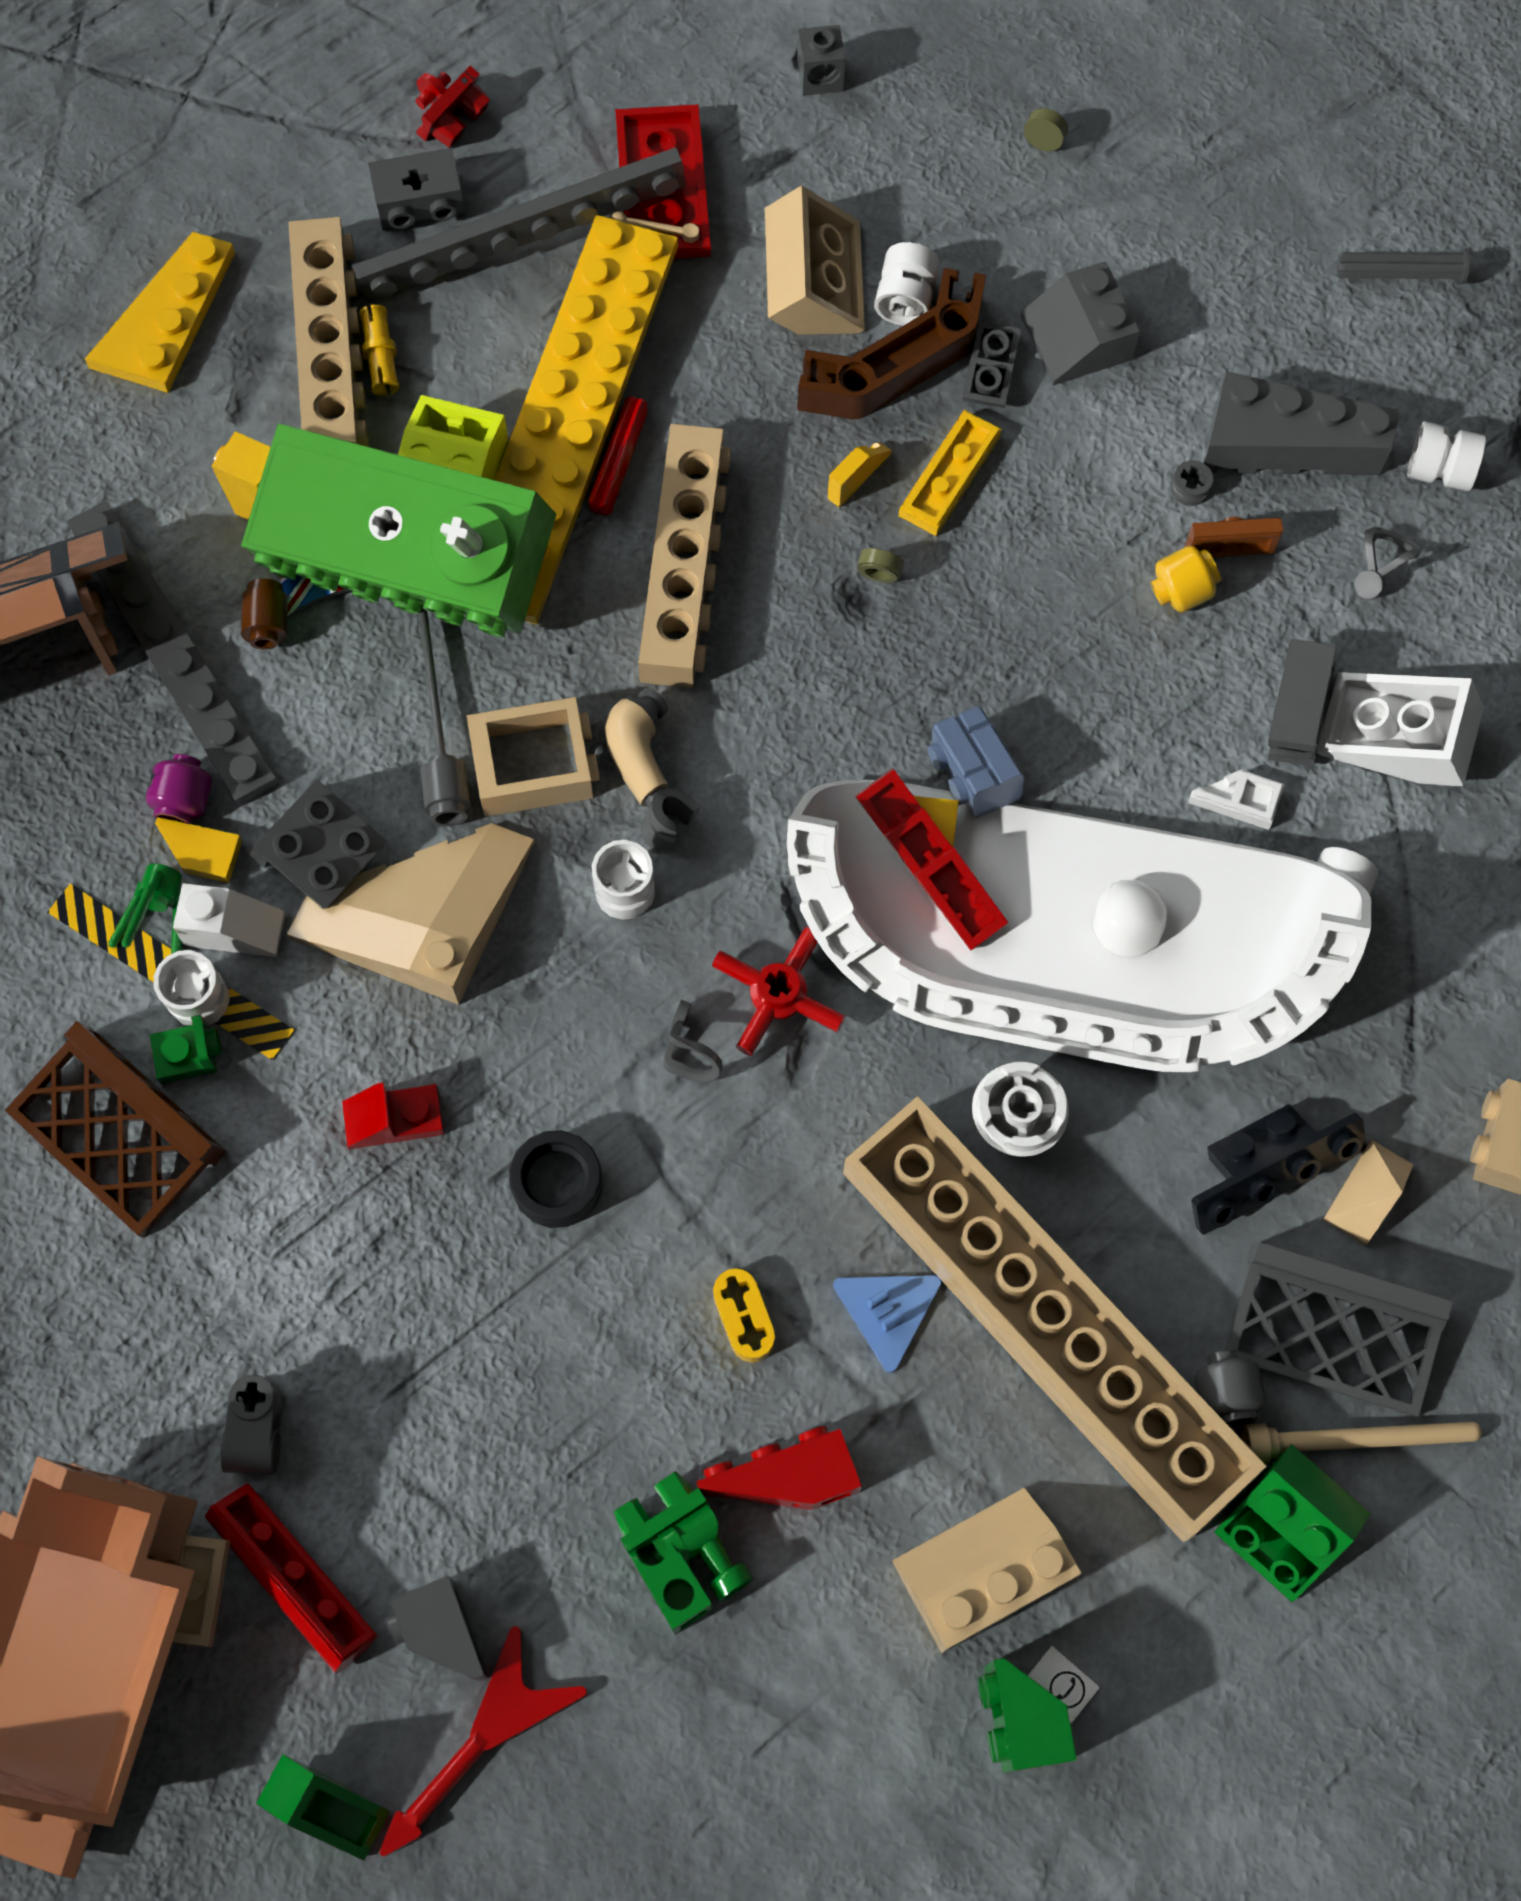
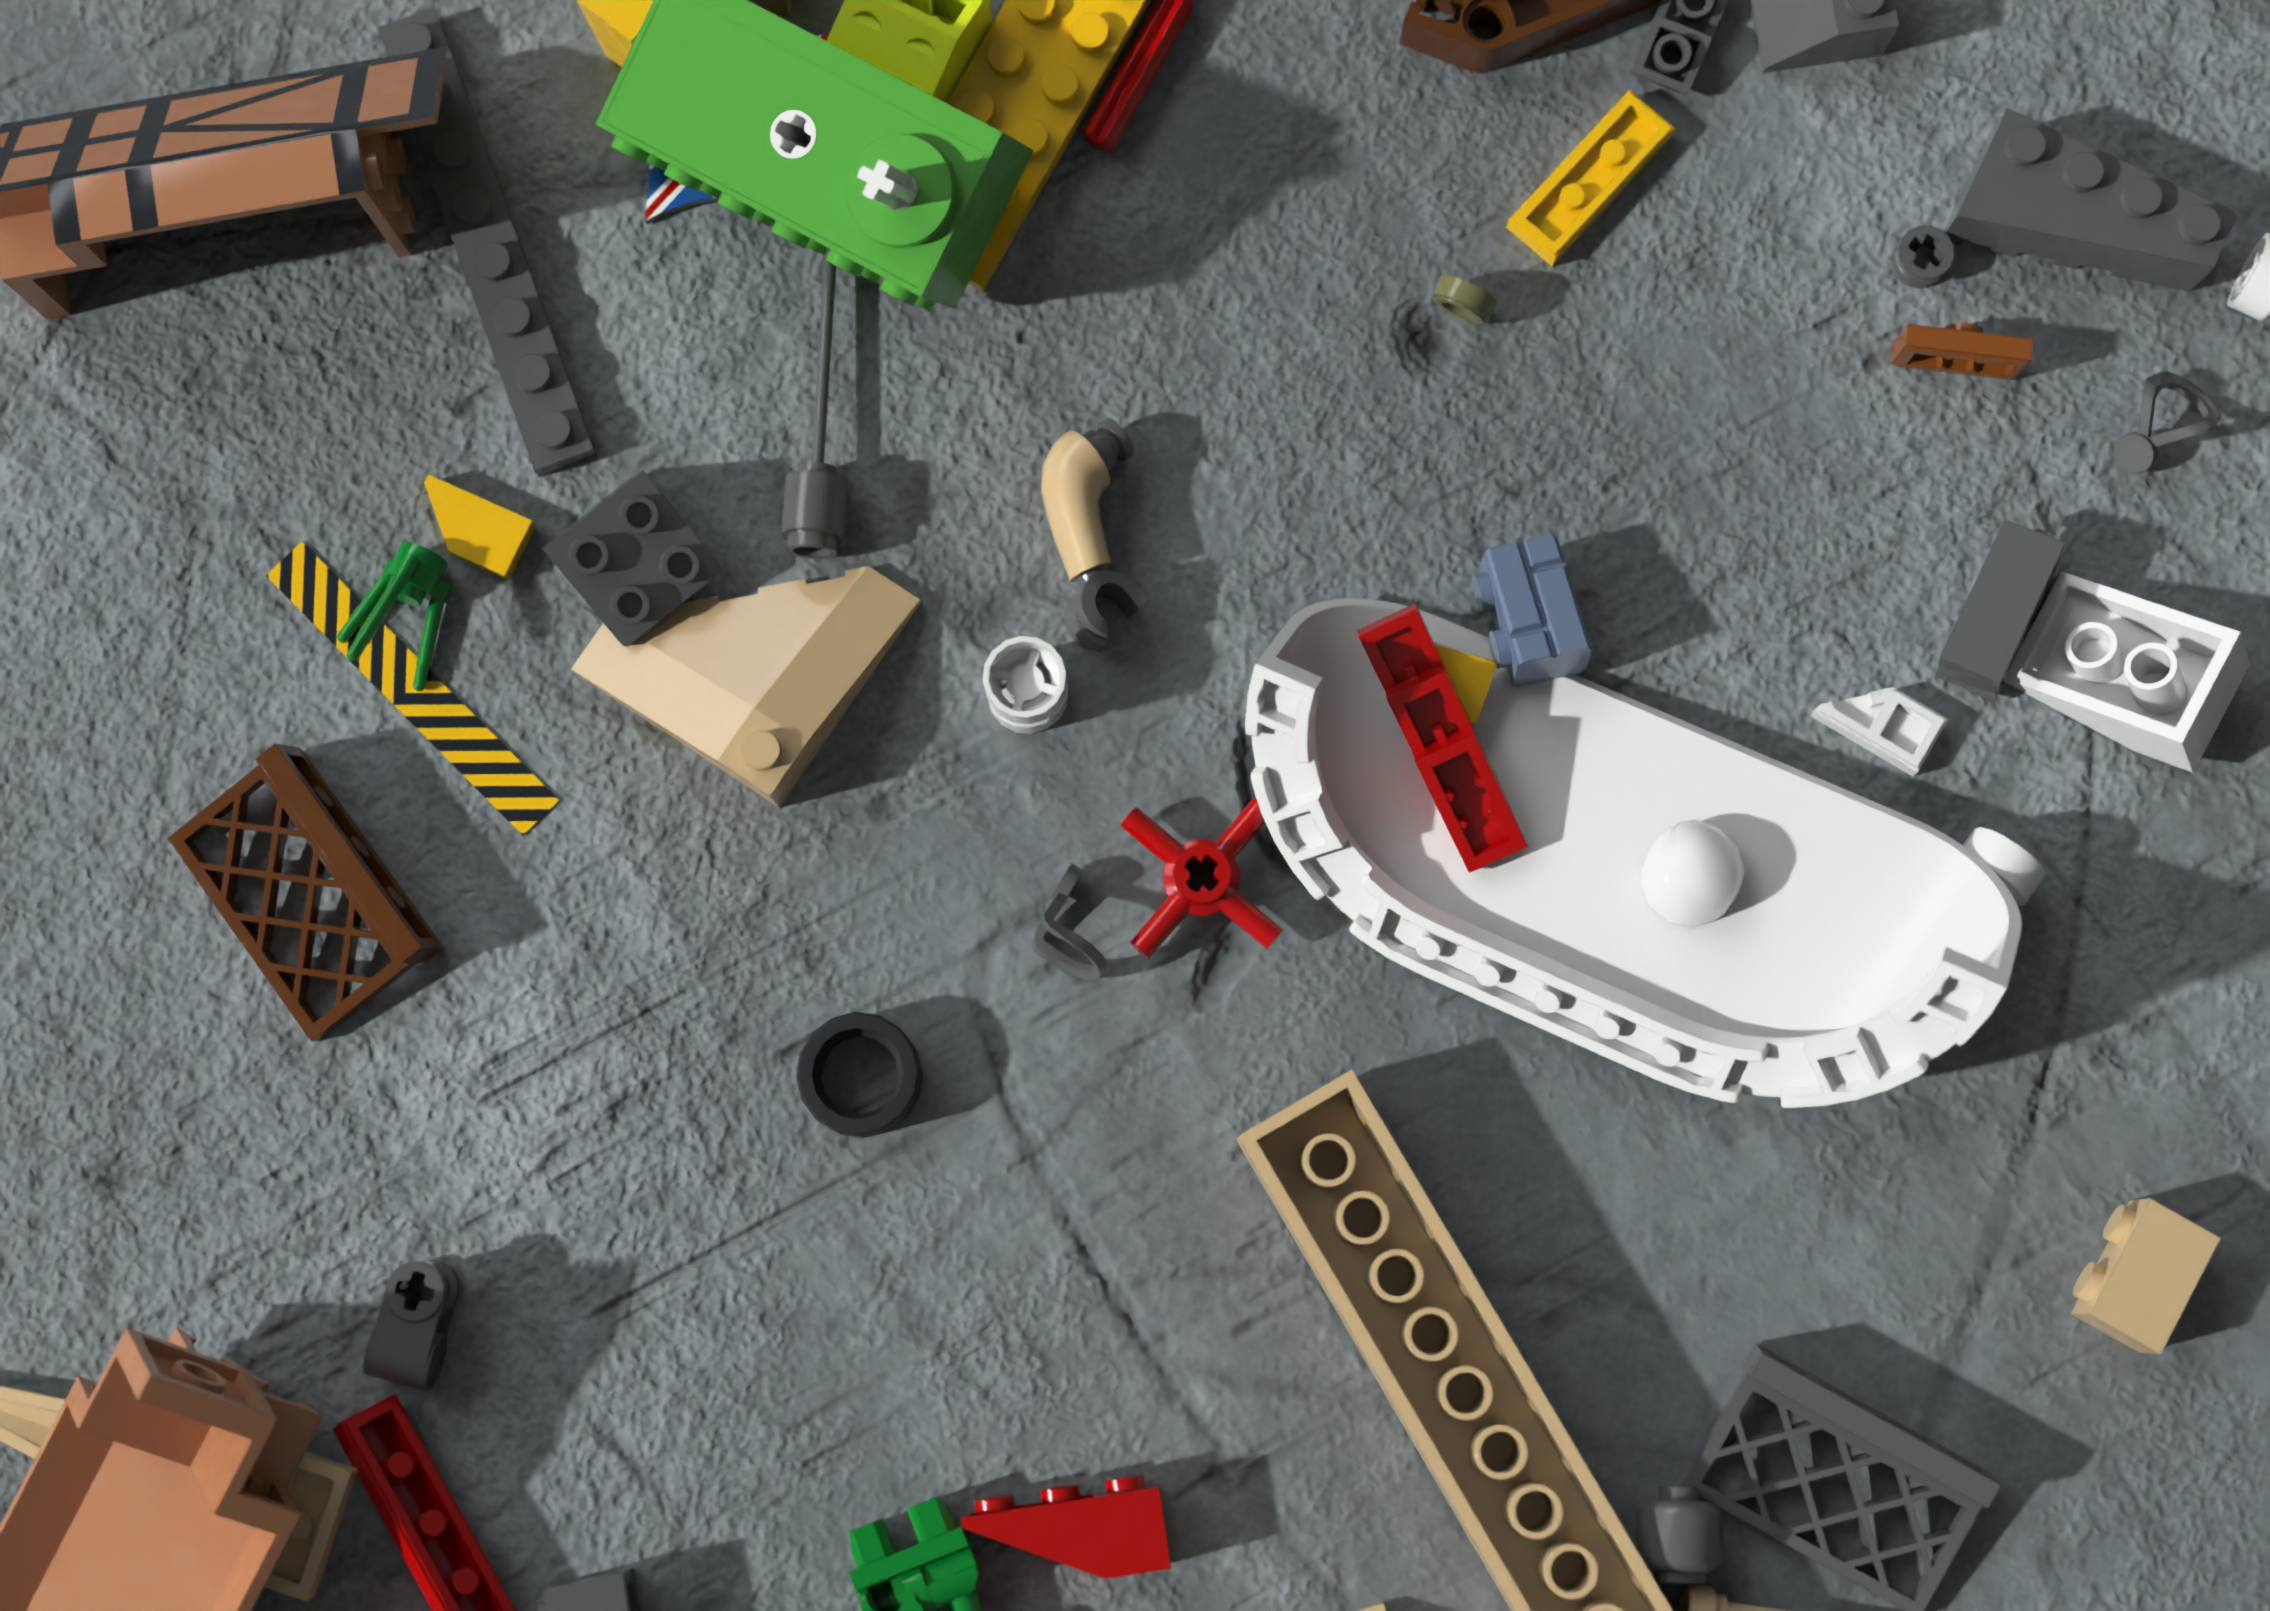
camera: 15 degrees right, 10 degrees up
(179, 789) = (462, 442): magenta head -> none
(184, 980) = (431, 726): white wheel -> none
(185, 1051) = (412, 804): green bracket -> none
(227, 921) = (496, 639): white slope -> none
(264, 614) = (617, 213): reddish brown brick -> none
(392, 1116) = (665, 945): red slope -> none
(536, 792) = (879, 537): tan window -> none
(688, 453) = (1233, 85): tan brick -> none
(754, 1311) = (1052, 1306): yellow beam -> none
(855, 470) = (1460, 152): yellow tile -> none
(887, 1311) = (1257, 1334): medium blue piece -> none
(1020, 1109) = (1486, 1110): white cone -> none
(1185, 579) = (1880, 399): yellow head -> none
(1270, 1160) = (1805, 1236): black bracket -> none
(1369, 1192) = (1928, 1306): tan slope -> none

